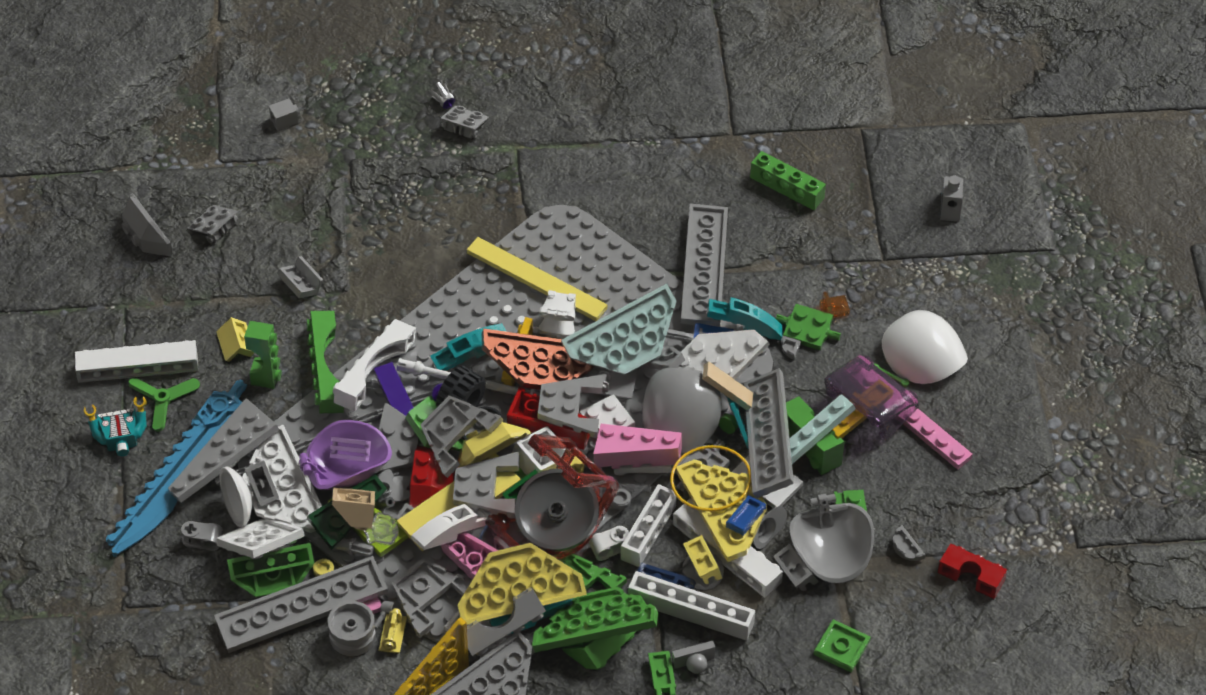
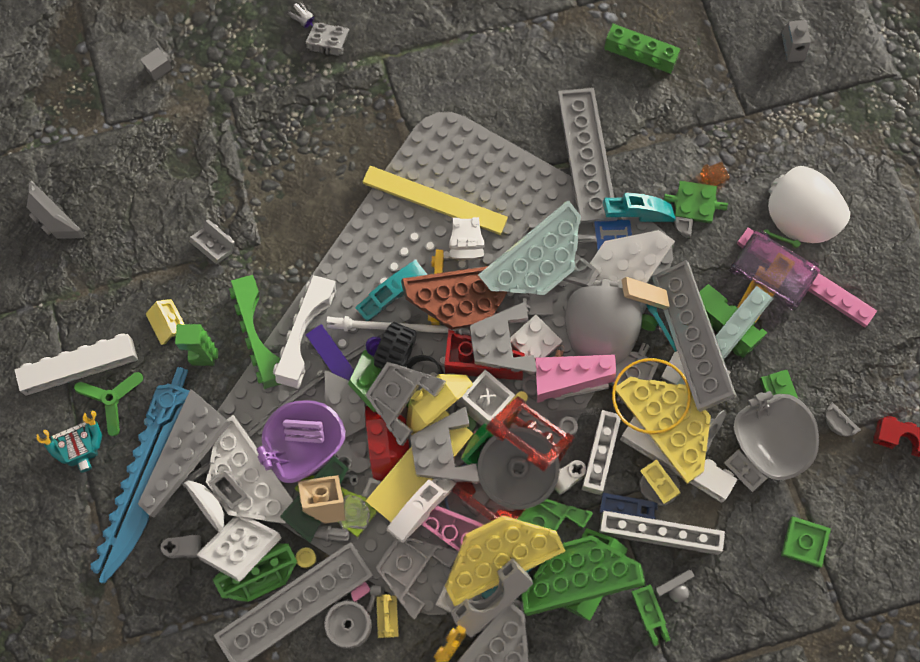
camera: 10 degrees left, 20 degrees up
(215, 222) = (115, 193): light grey hinge -> none
(746, 515) = (695, 433): blue tile -> none

